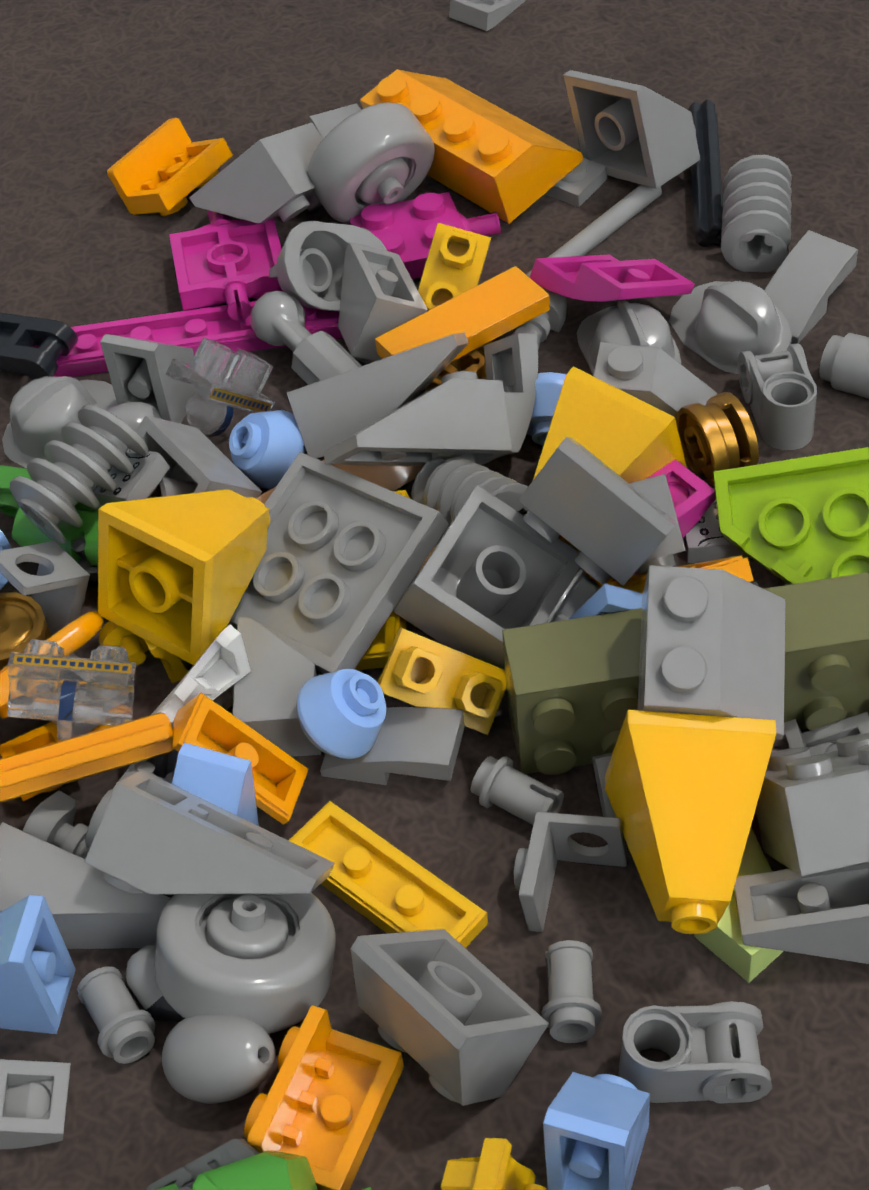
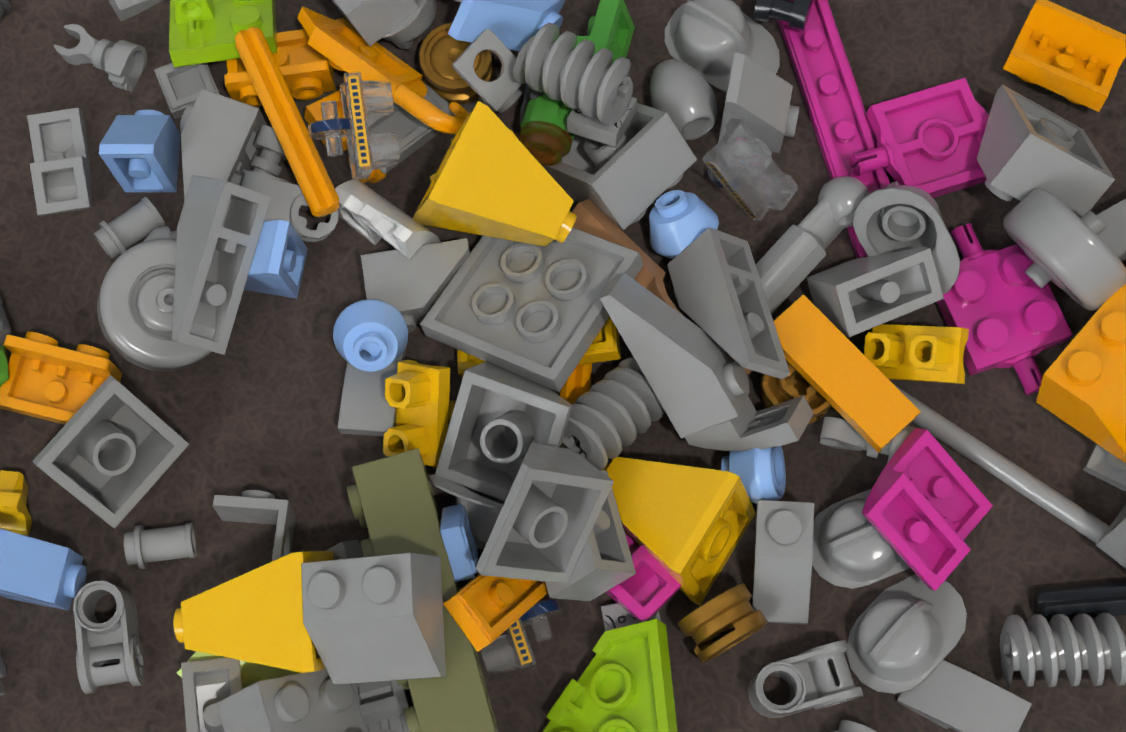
camera: 80 degrees right, 25 degrees up
(217, 1057) = (76, 304): light grey animal -> none
(275, 773) = (320, 264): light orange slope -> none
(385, 881) = (251, 397): yellow tile -> none
(513, 791) = (332, 482): light grey pin -> none

